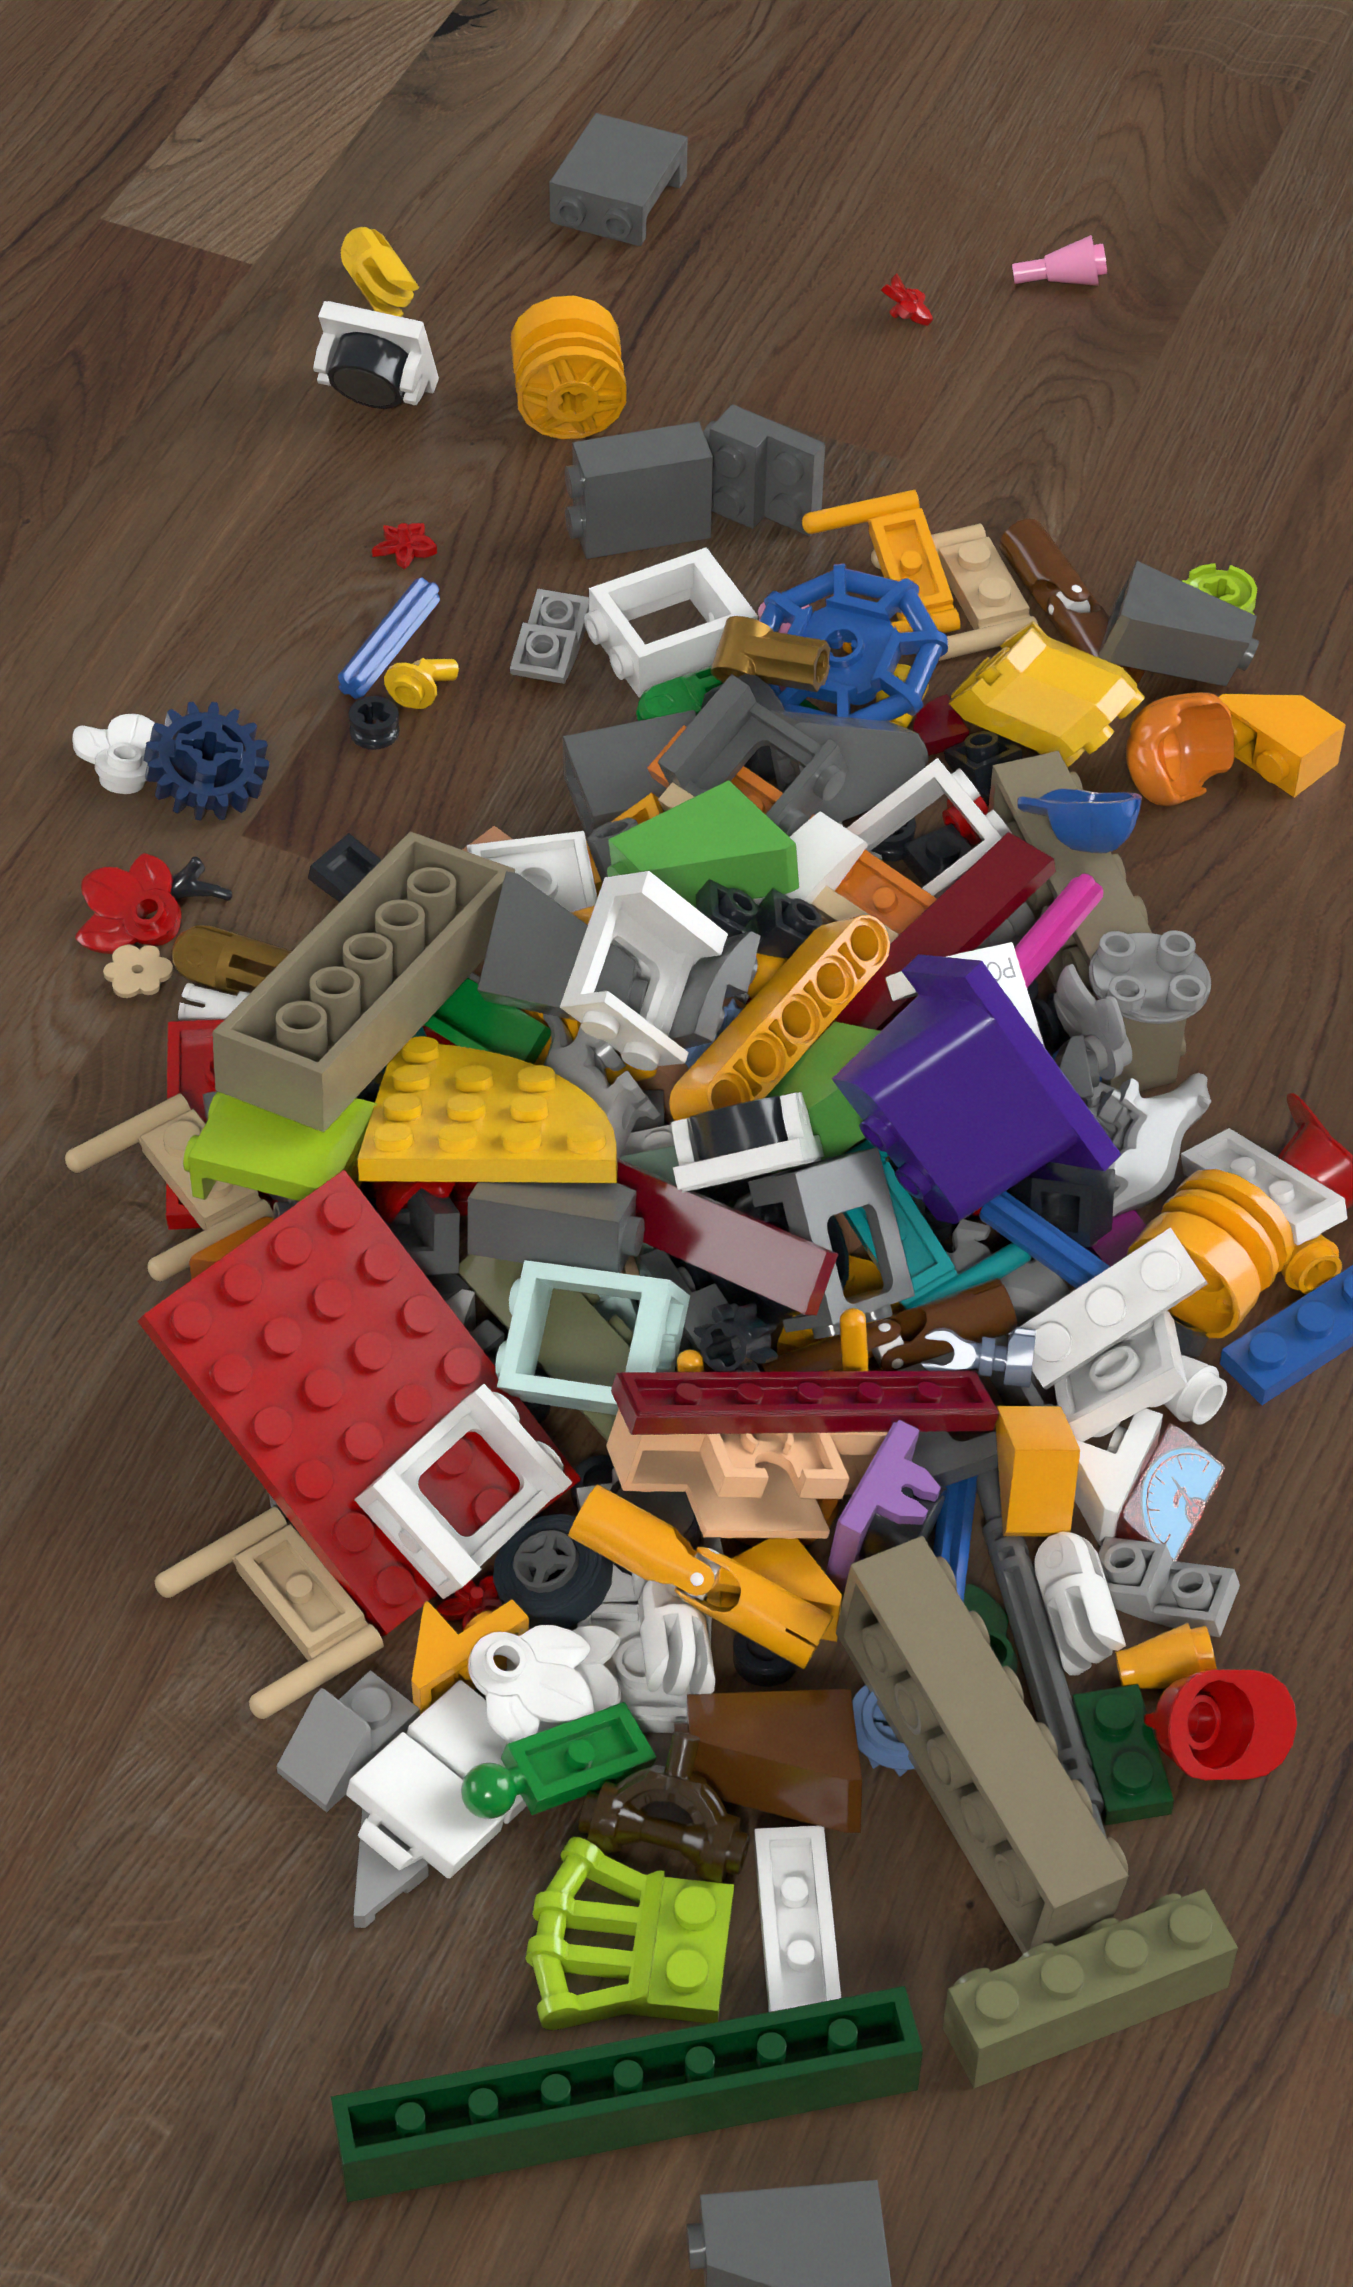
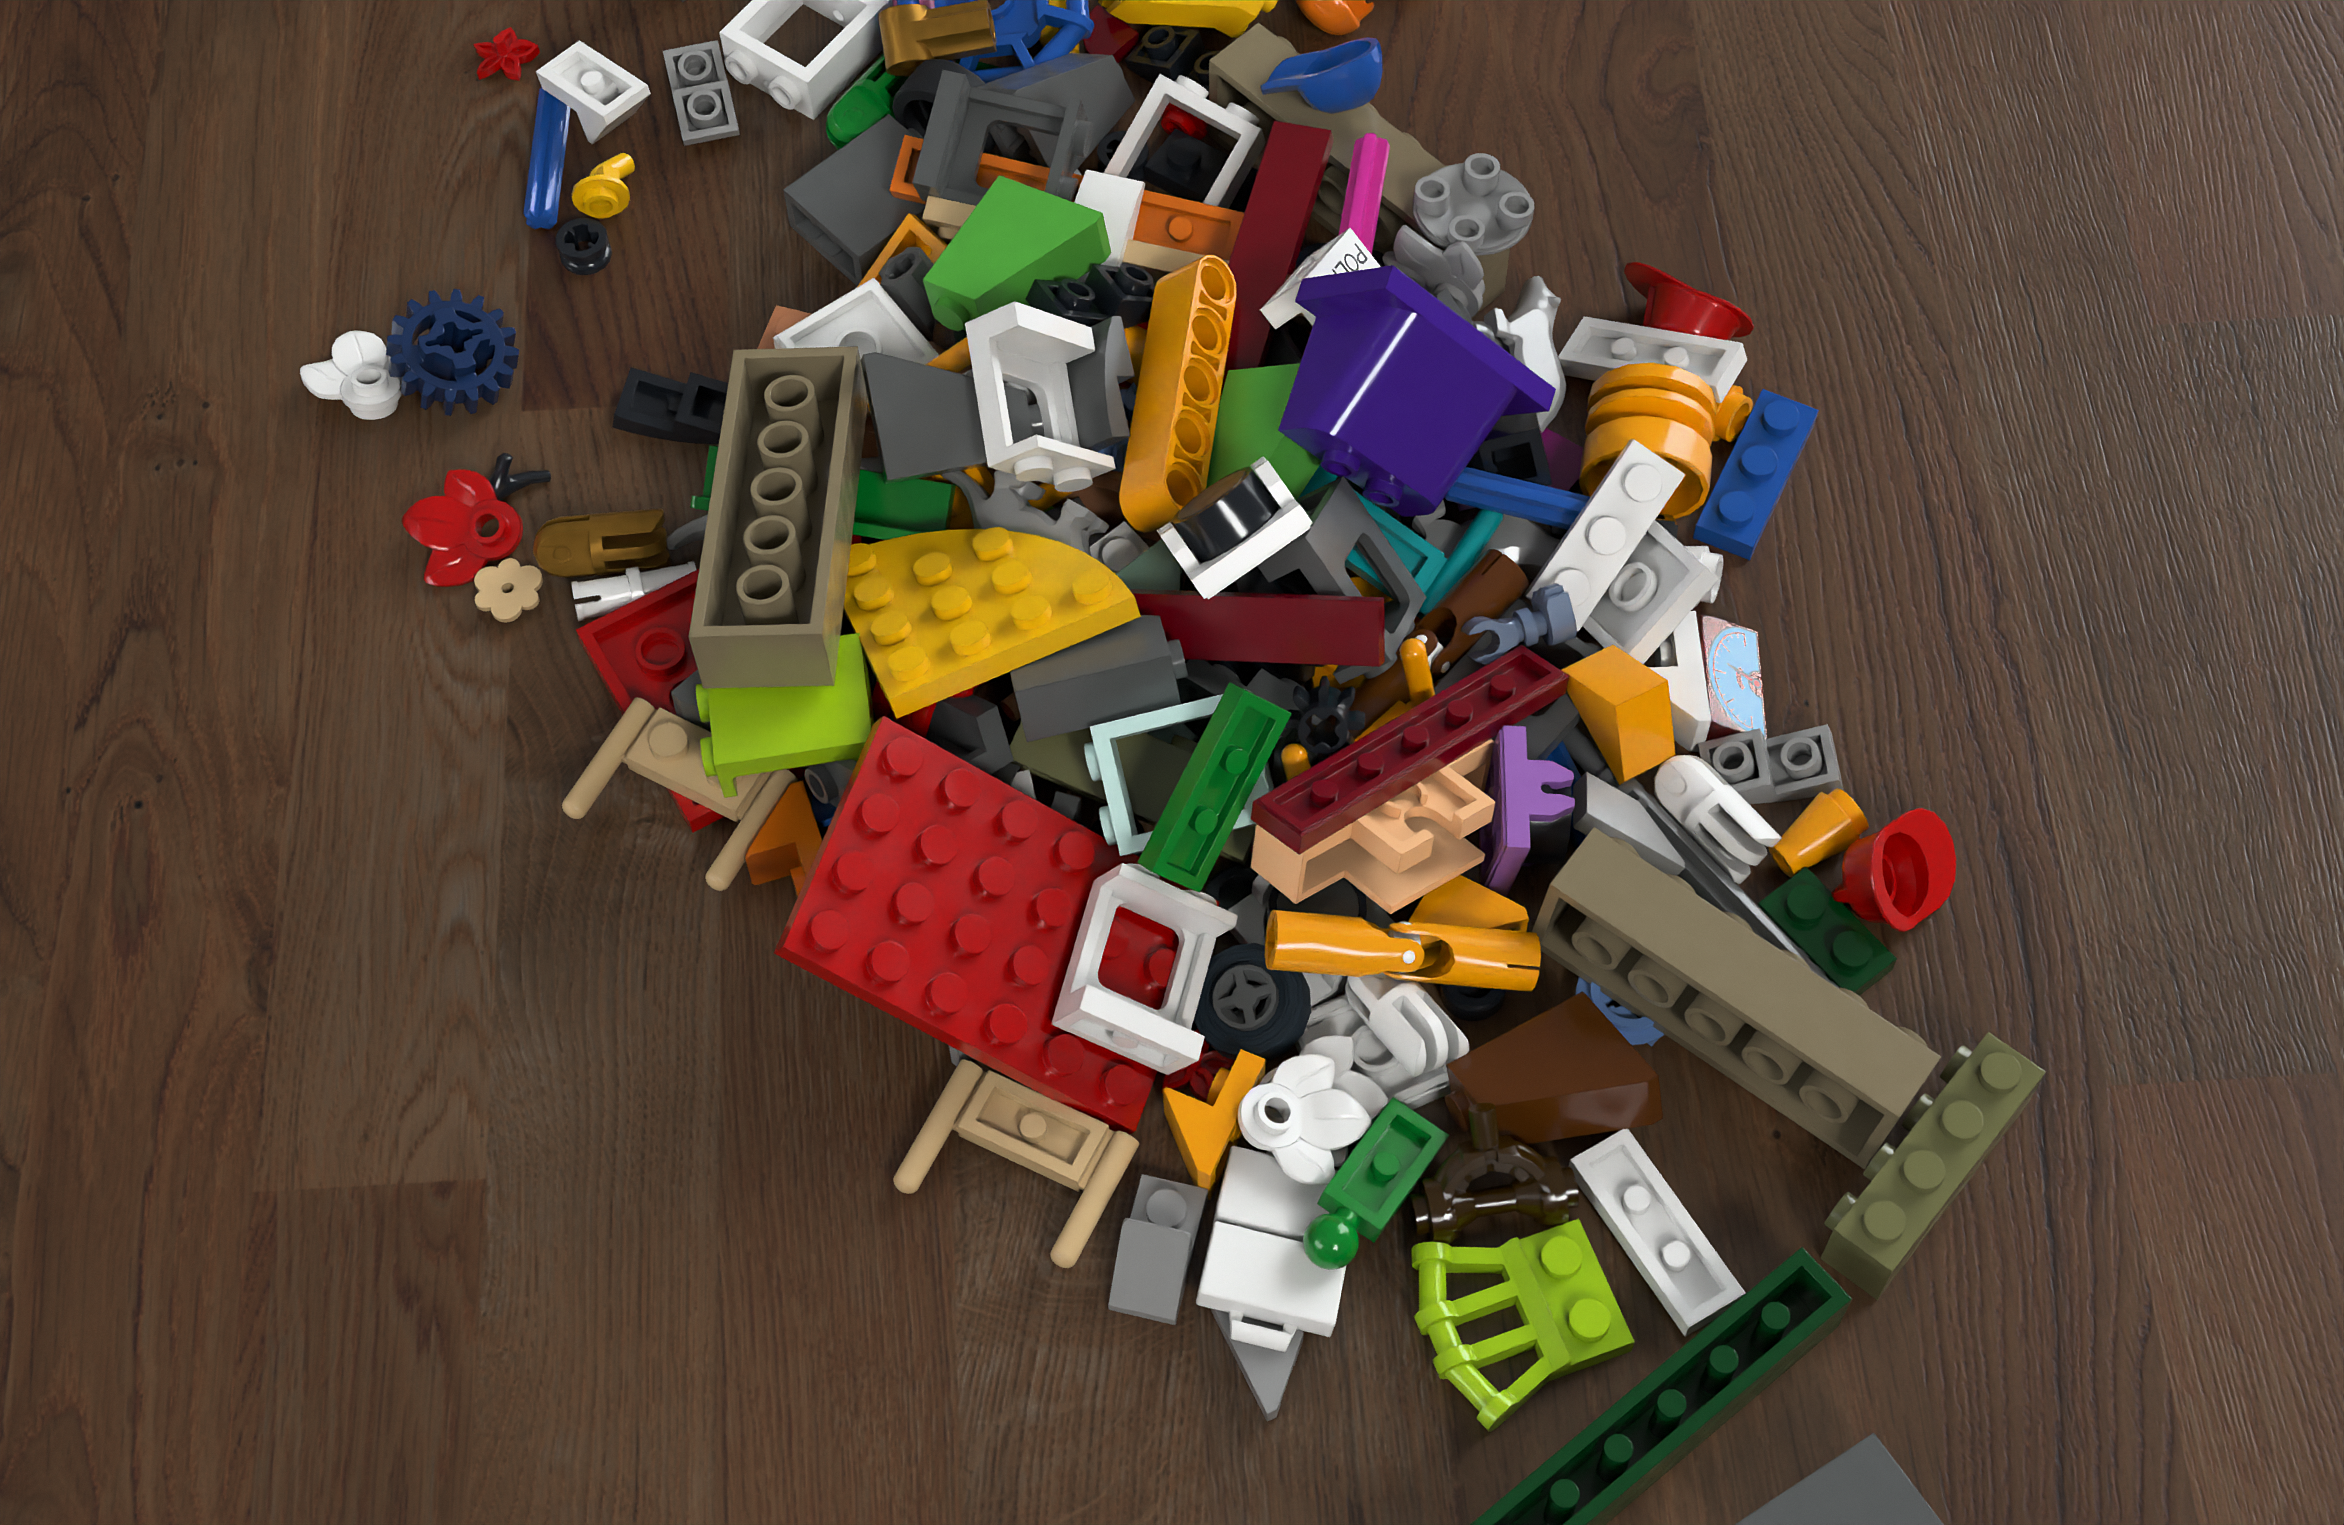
camera: 25 degrees left, 10 degrees up
(455, 597) = (594, 88): none -> white slope
(594, 1349) = (1214, 787): none -> green plate
(980, 1569) = (1625, 818): none -> light grey tile

